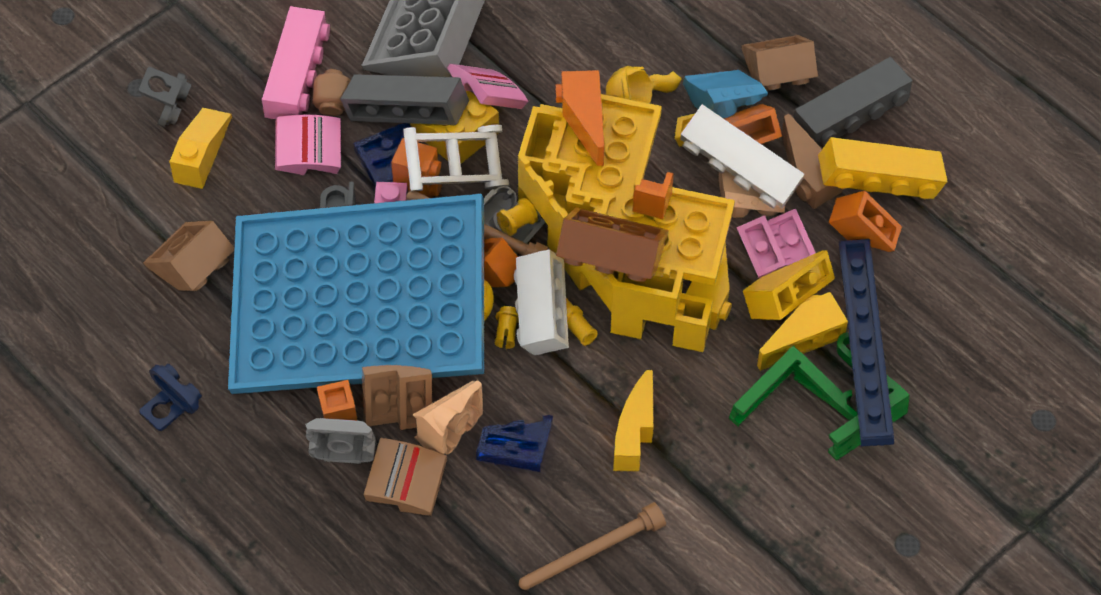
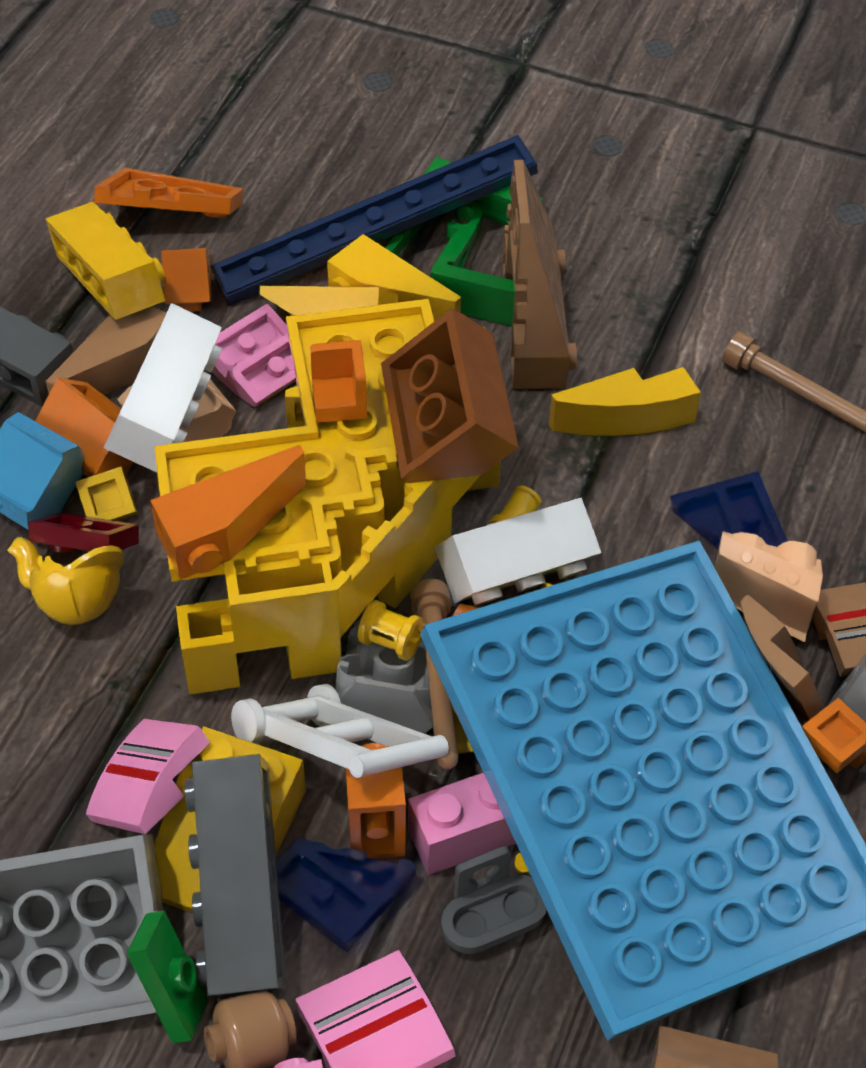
camera: 115 degrees left, 5 degrees down
(371, 56) = (167, 976): none -> green plate
(674, 102) = (74, 532): none -> dark red plate
(753, 379) = (531, 258): none -> medium nougat wedge
(949, 232) = (169, 192): none -> orange wing

